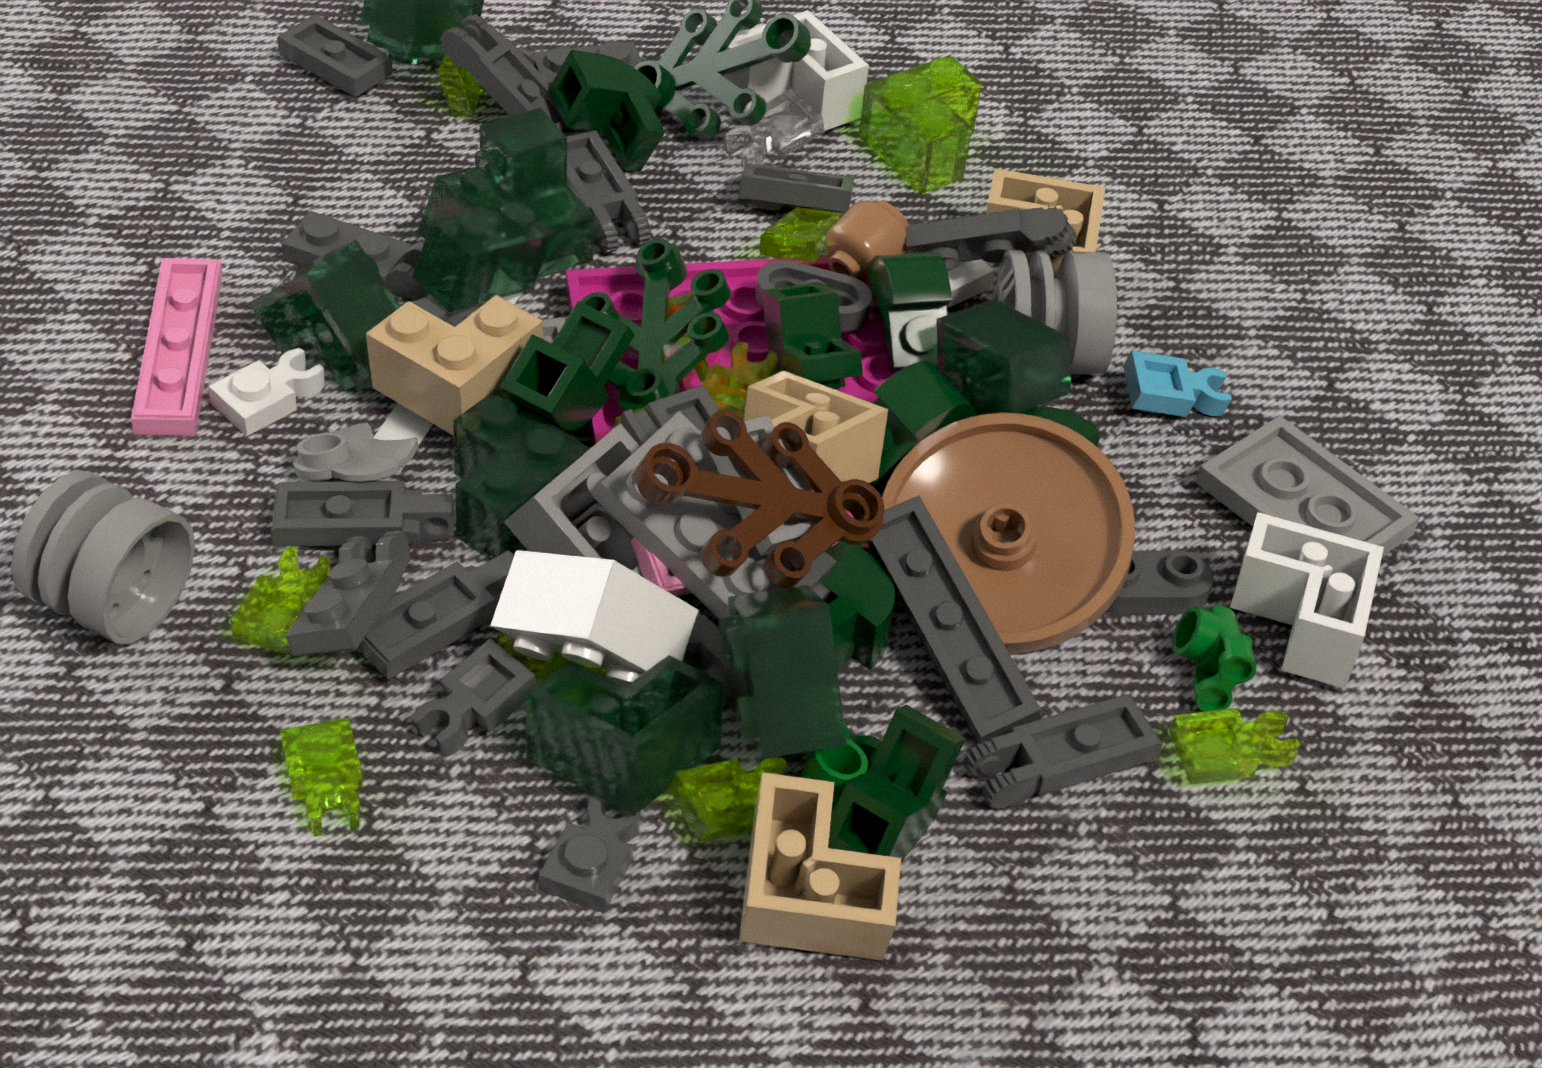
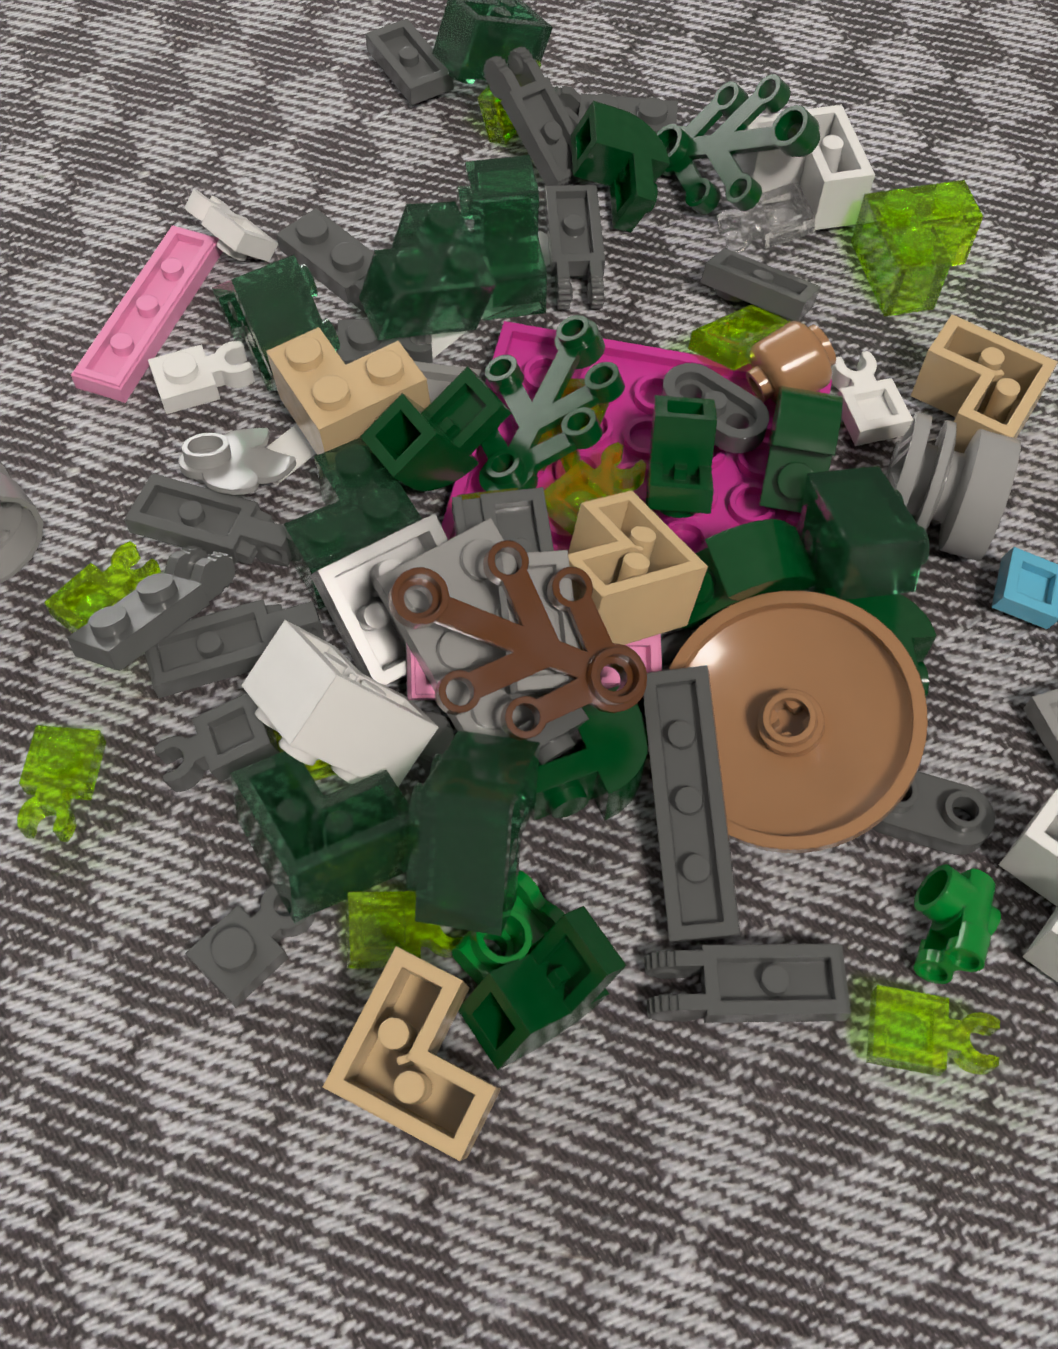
camera: 25 degrees right, 15 degrees up
(239, 252) = (236, 233): none -> white plate
(993, 234) = (912, 391): dark grey hinge -> none

